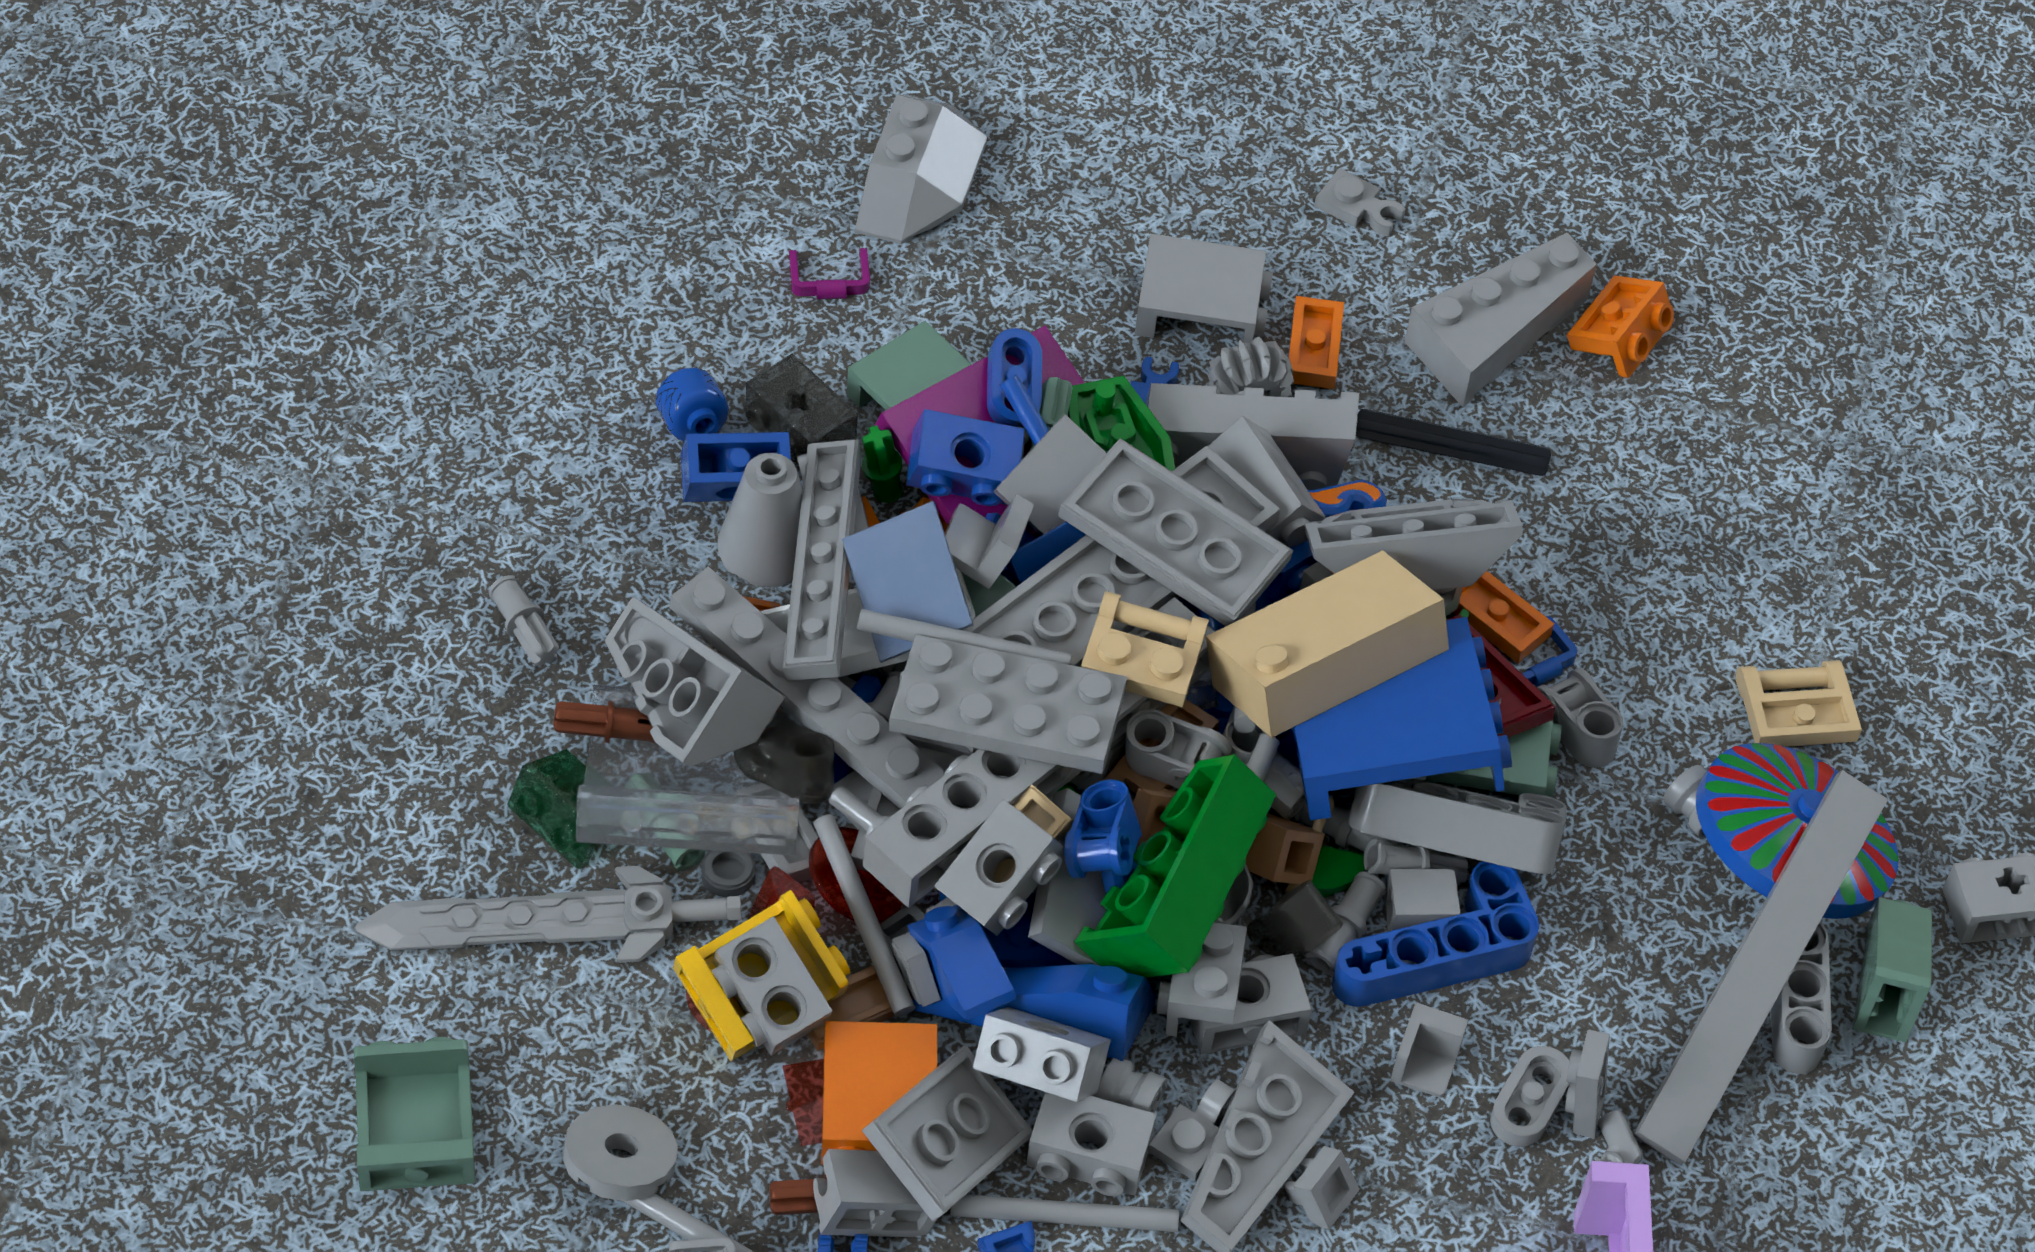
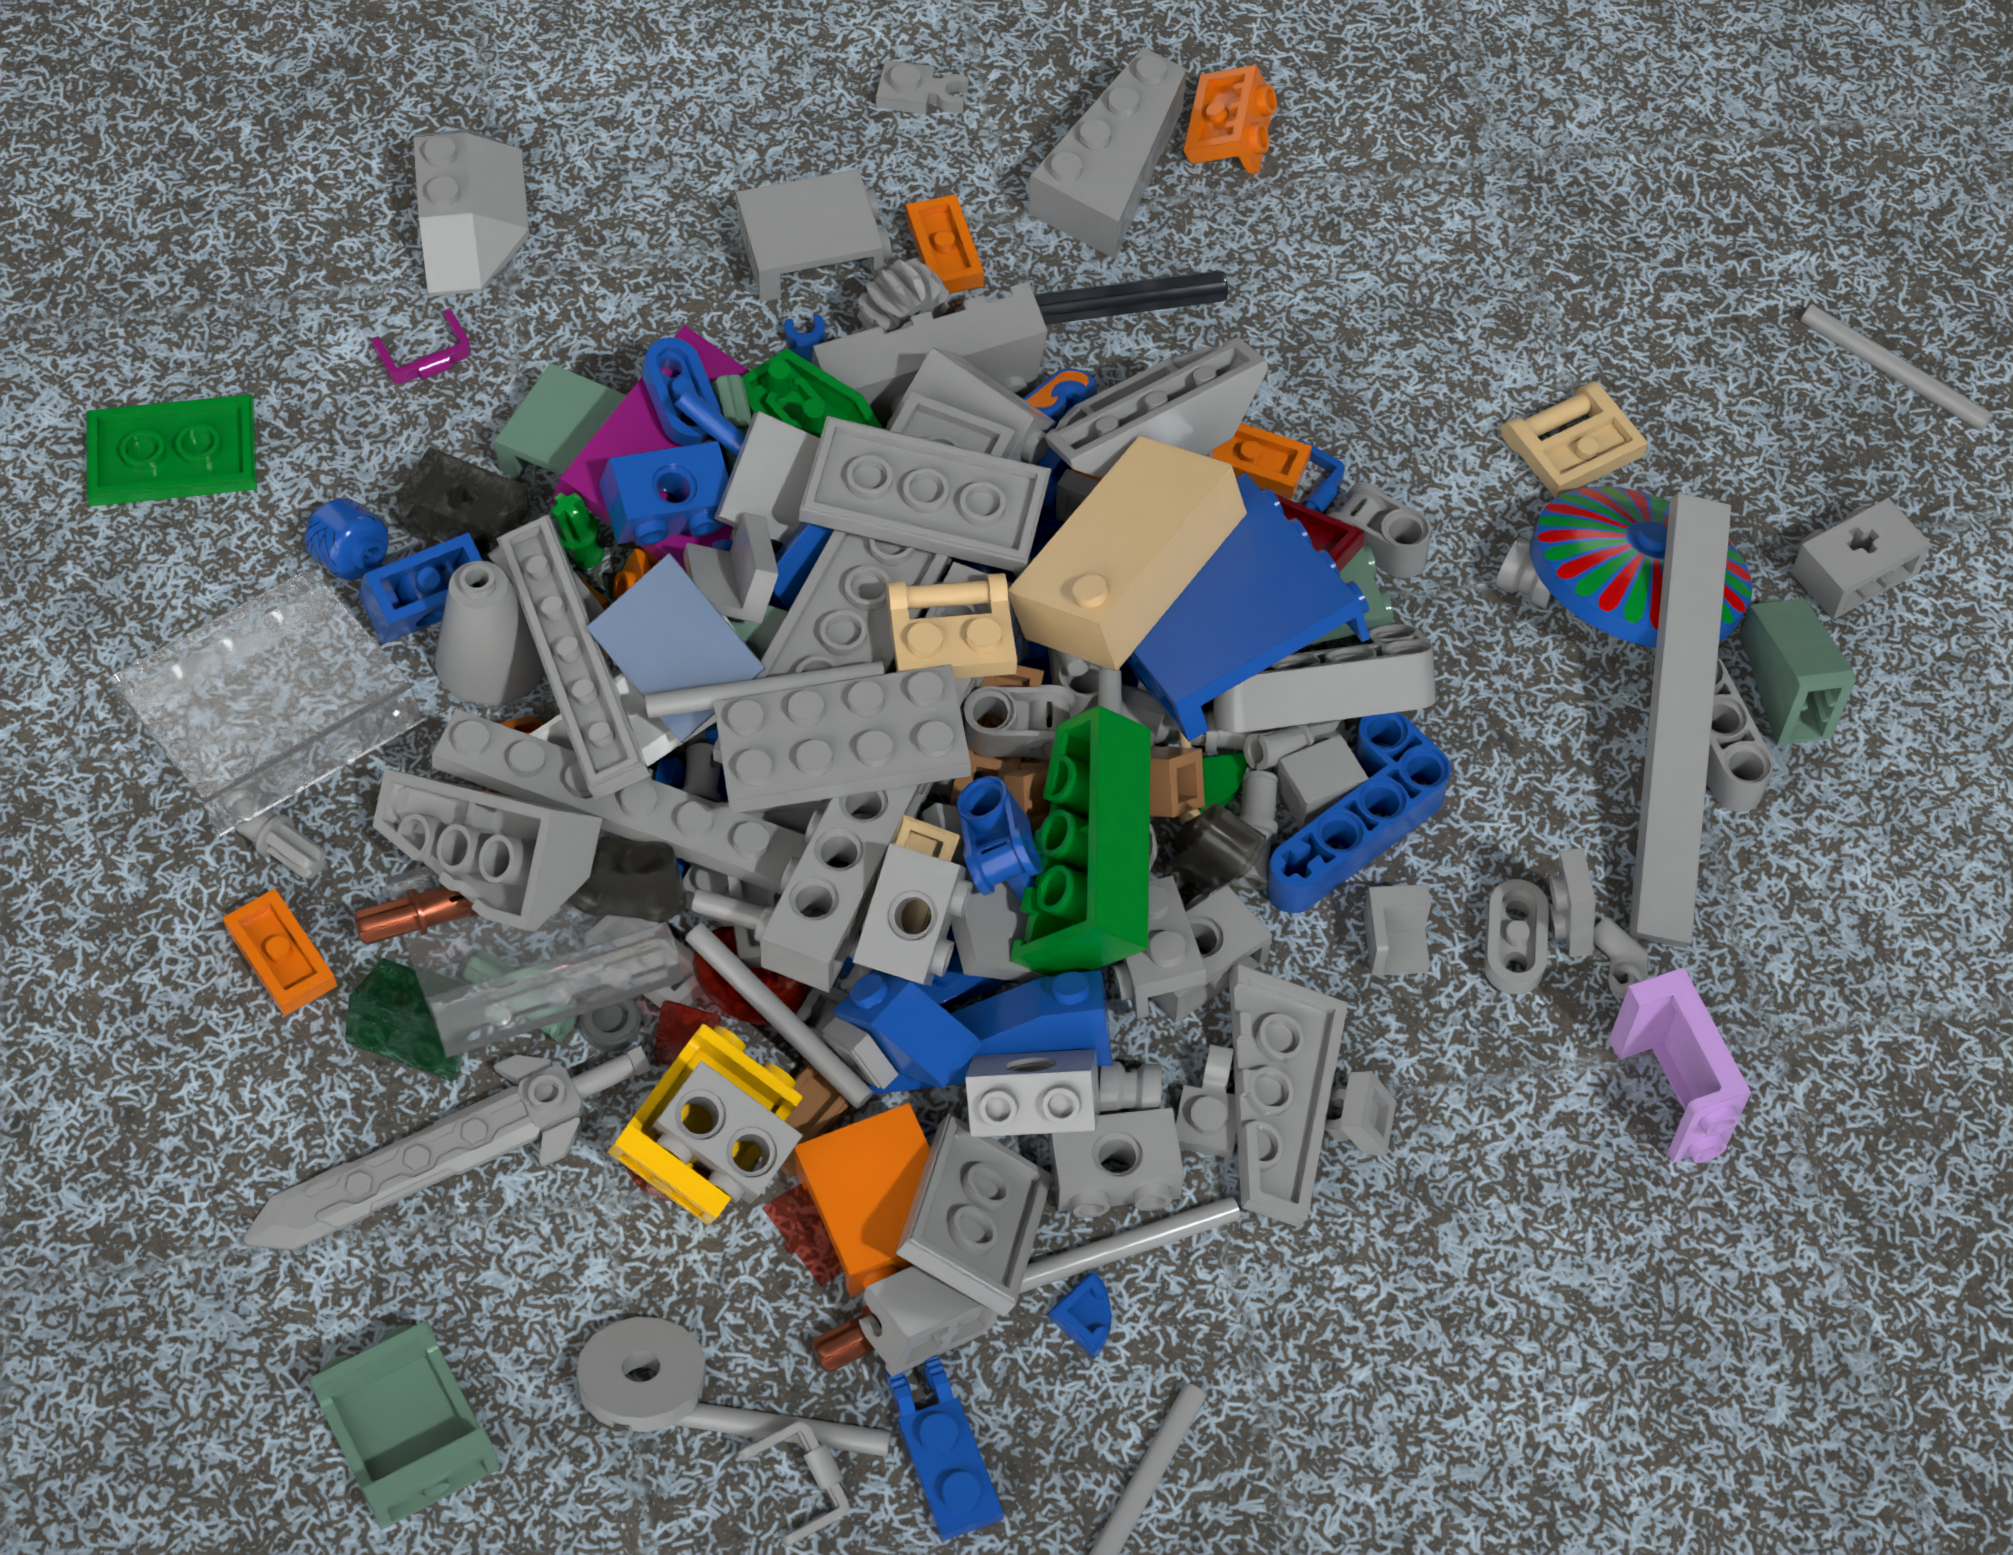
camera: 20 degrees left, 5 degrees up
(486, 713) = (279, 952): none -> orange plate
(566, 508) = (268, 699): none -> clear panel
(584, 283) = (171, 450): none -> green tile

